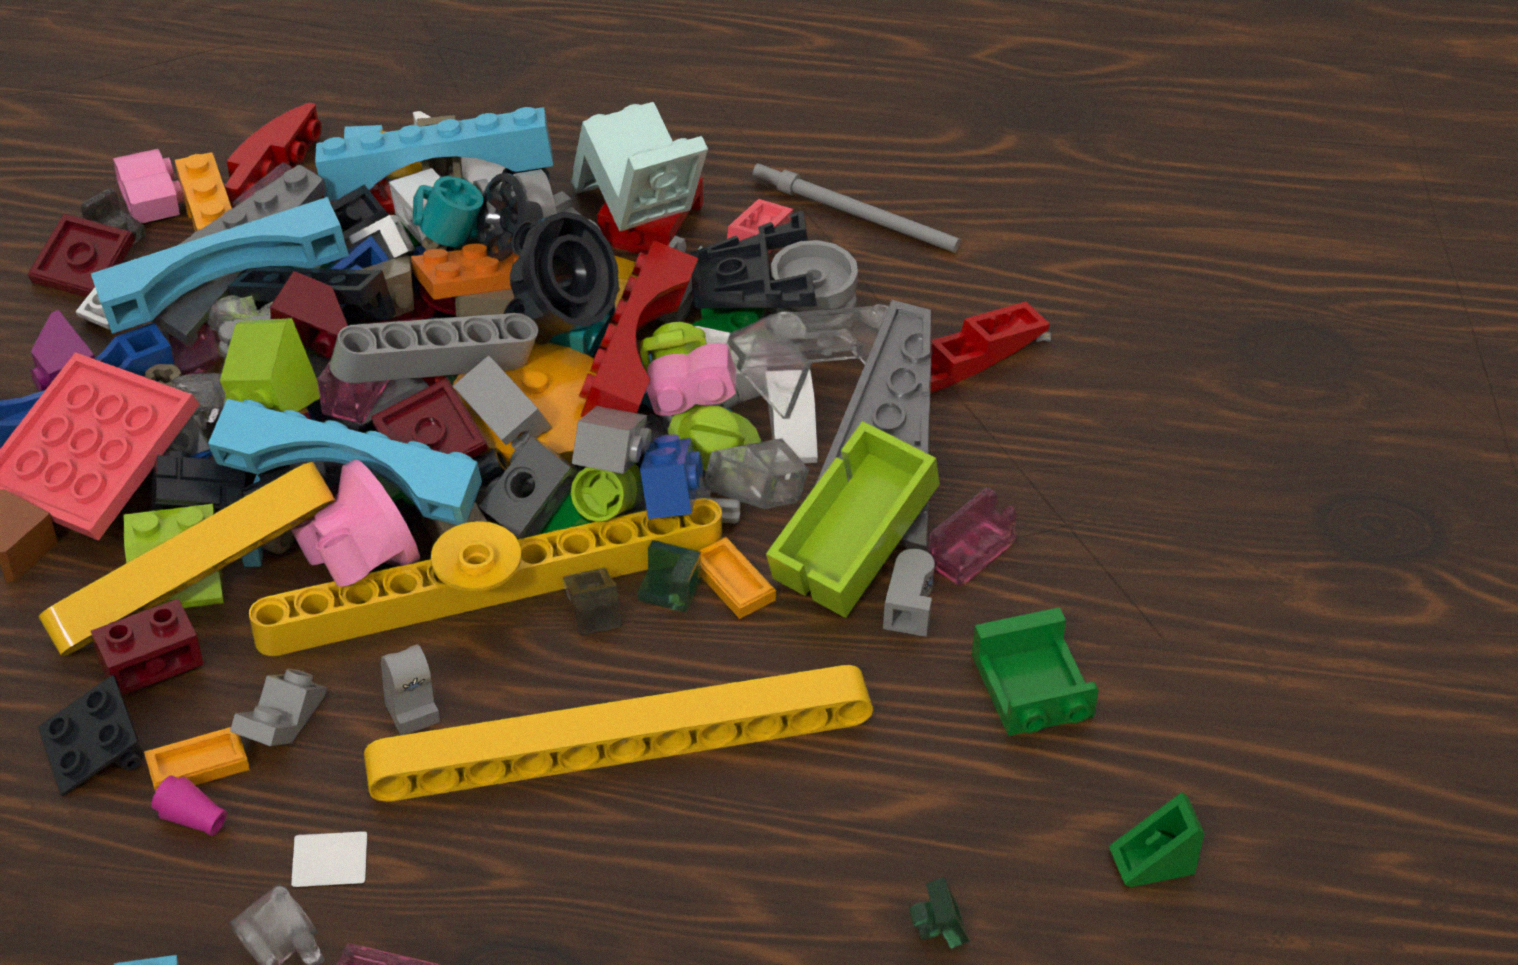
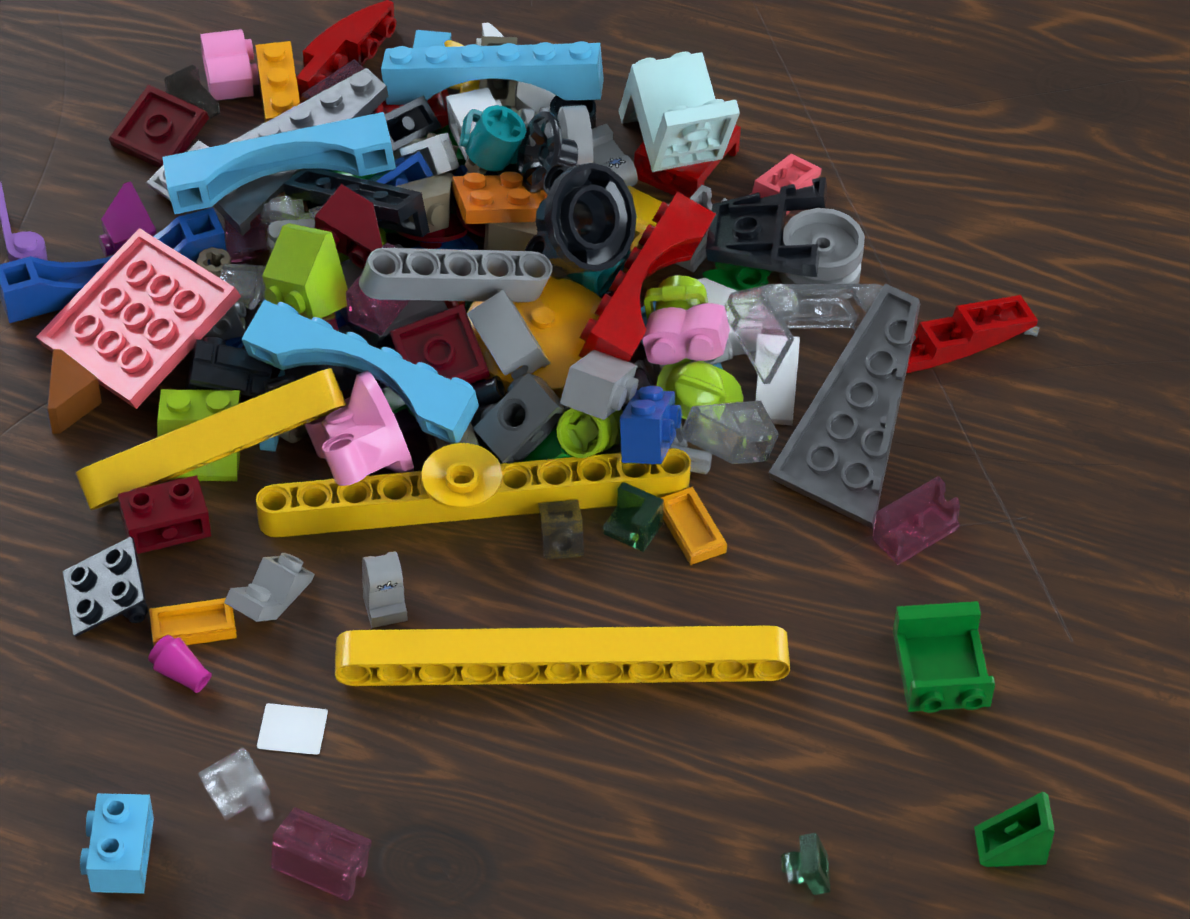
camera: 10 degrees right, 5 degrees up
(791, 183) = (826, 141): light grey bar -> none
(853, 526) = (808, 493): lime piece -> none
(906, 603) = (841, 572): light grey leg -> none

